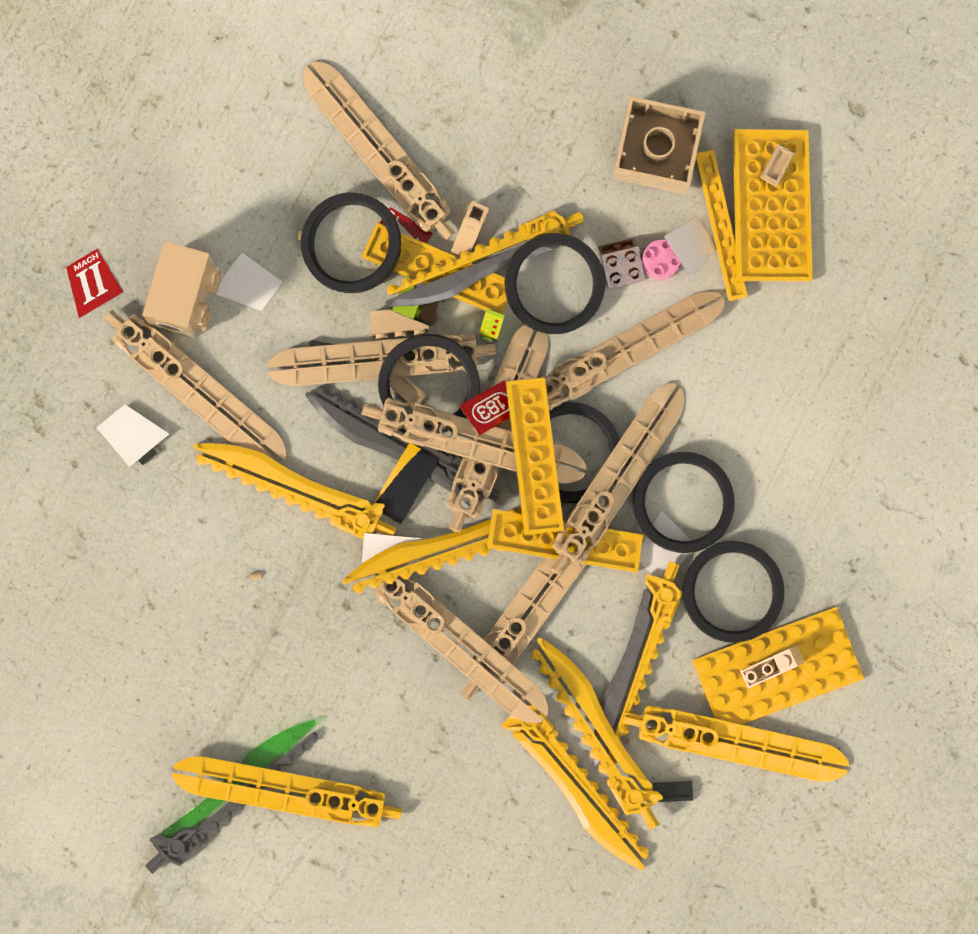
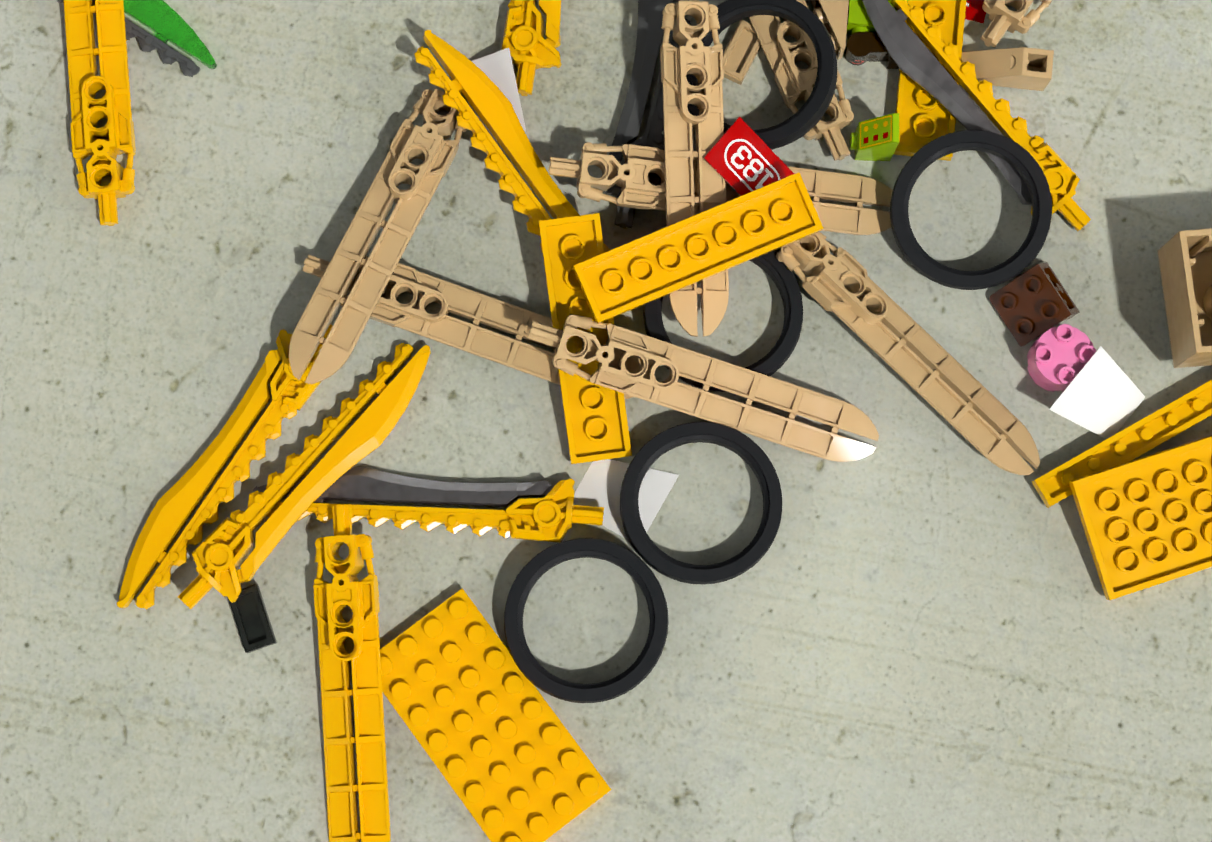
camera: 75 degrees right, 5 degrees down
(406, 482) = (603, 87): black sticker -> none
(772, 666) = (485, 714): tan slope -> none

